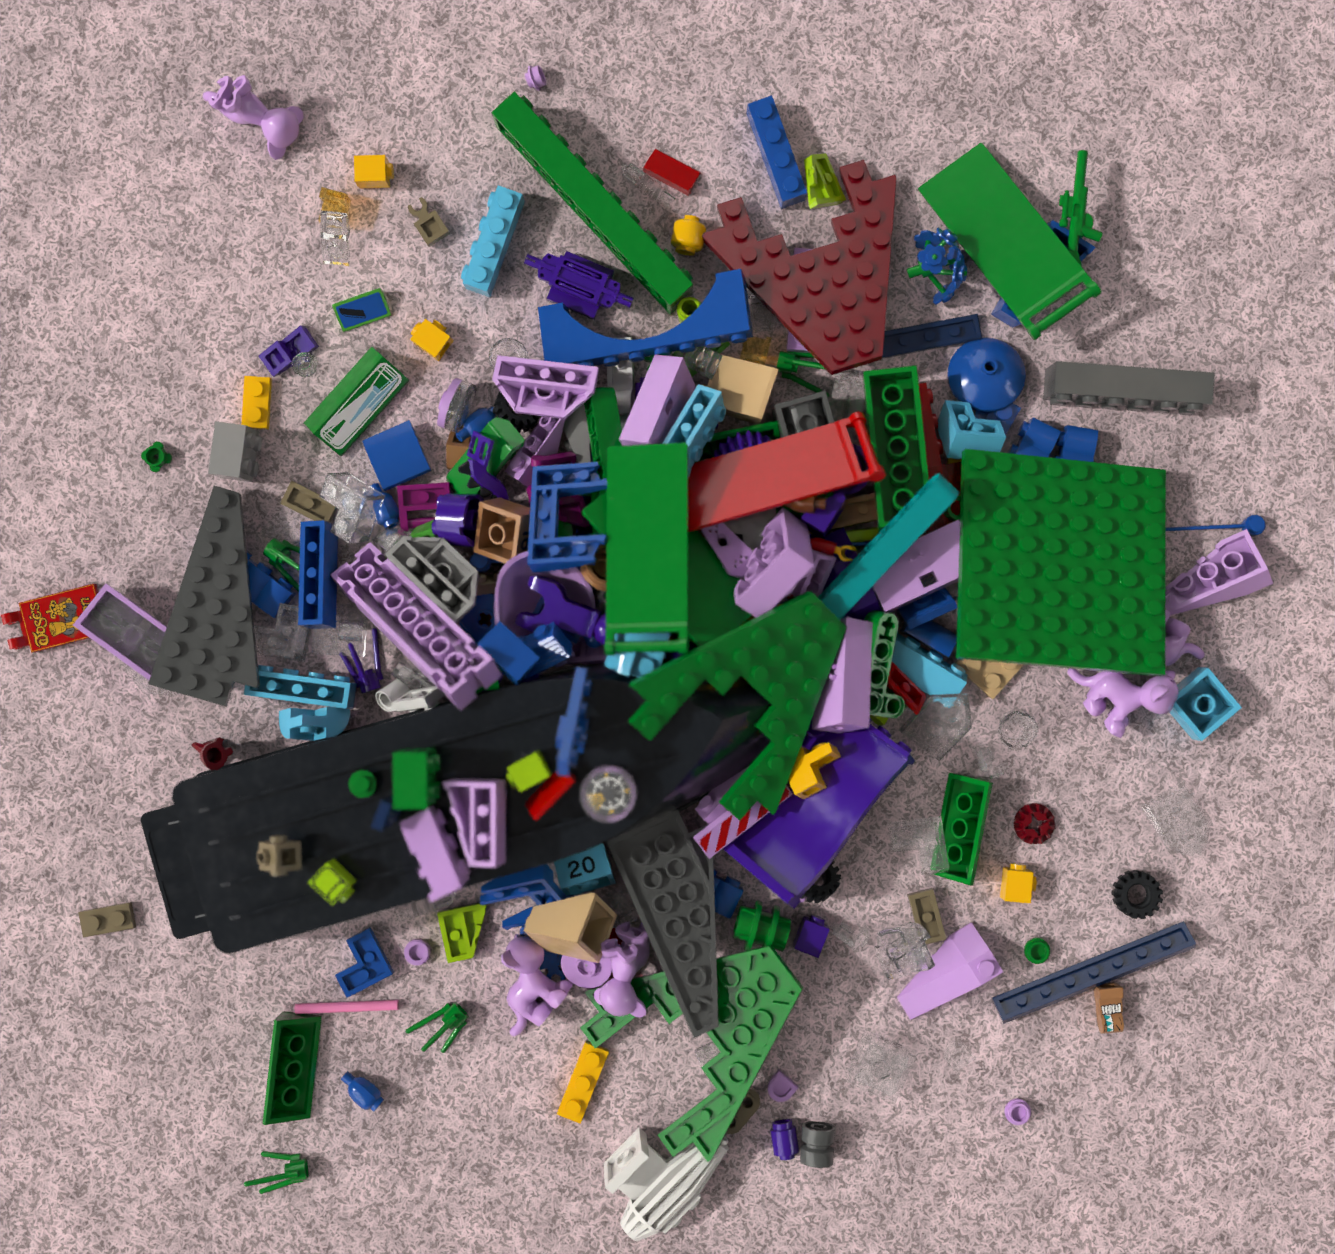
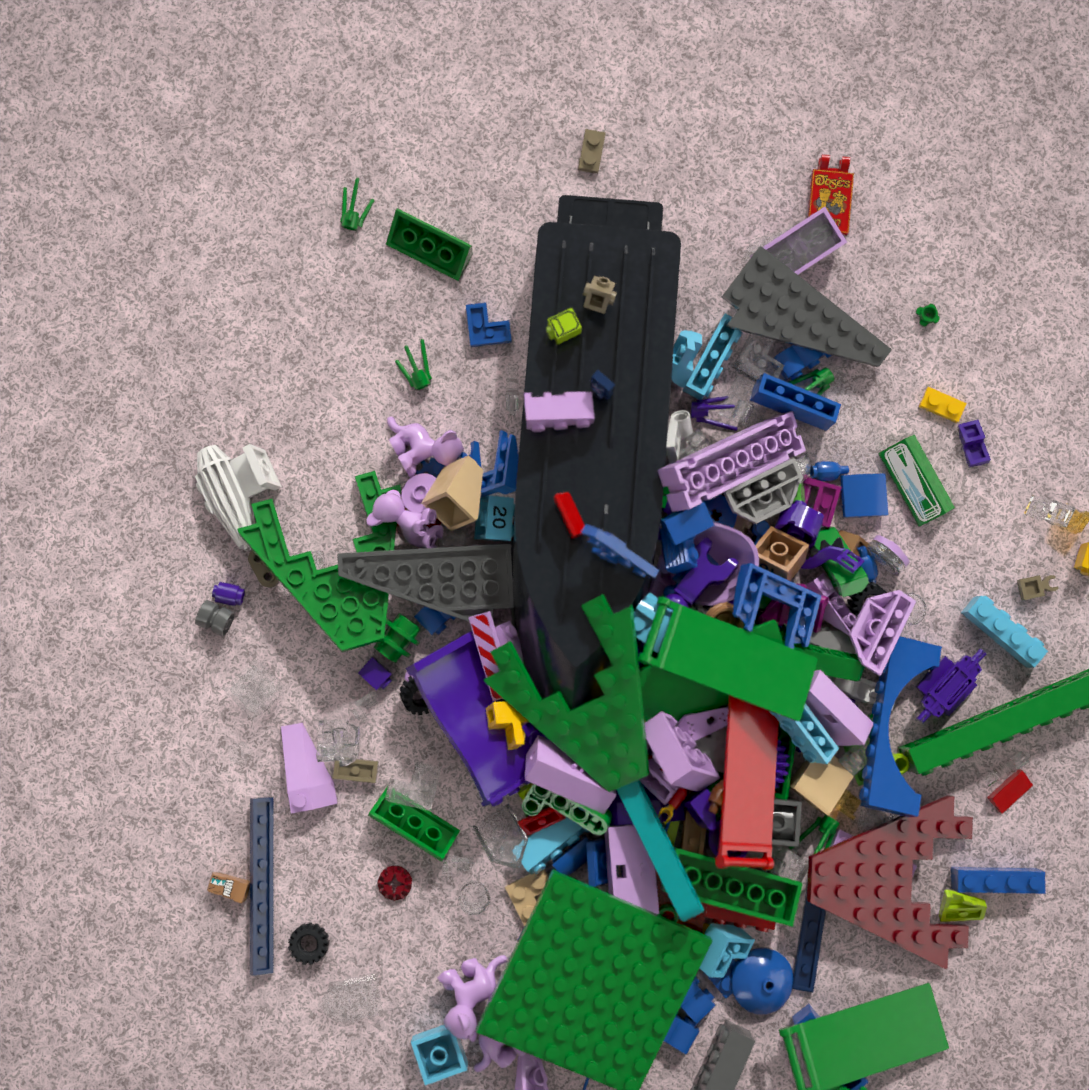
camera: 110 degrees right, 5 degrees down
(213, 753) = (689, 274): dark red animal -> none
(234, 452) = (911, 374): light grey brick -> none
(304, 370) = (954, 452): clear plate -> none
(307, 503) = (852, 415): dark tan plate -> none
(353, 1006) = (458, 302): bright pink bar -> none
(356, 504) = (836, 450): clear brick -> none
(362, 309) = (986, 510): slope -> none
(362, 783) = (629, 376): green plate -> none
(363, 1092) = (390, 290): blue plant -> none
(416, 778) = (620, 417): green brick -> none
(417, 951) = (479, 370): lavender tile -> none
(431, 338) = (945, 555): yellow brick -> none
(461, 930) = (483, 409): lime wing -> none
(481, 819) = (570, 454): lavender wedge -> none
(528, 771) = (592, 503): lime brick -> none
(582, 1082) = (332, 457): yellow plate -> none
(608, 793) = (553, 558): clear piece -> none
(688, 235) = (956, 784): yellow head -> none
(781, 1087) = (268, 606): lavender tile -> none
(932, 260) = (869, 972): blue plant -> none
(1017, 883) = (354, 851): yellow brick -> none
(1017, 1111) = (177, 783): lavender plate -> none
(1037, 950) = (295, 846): green plate -> none

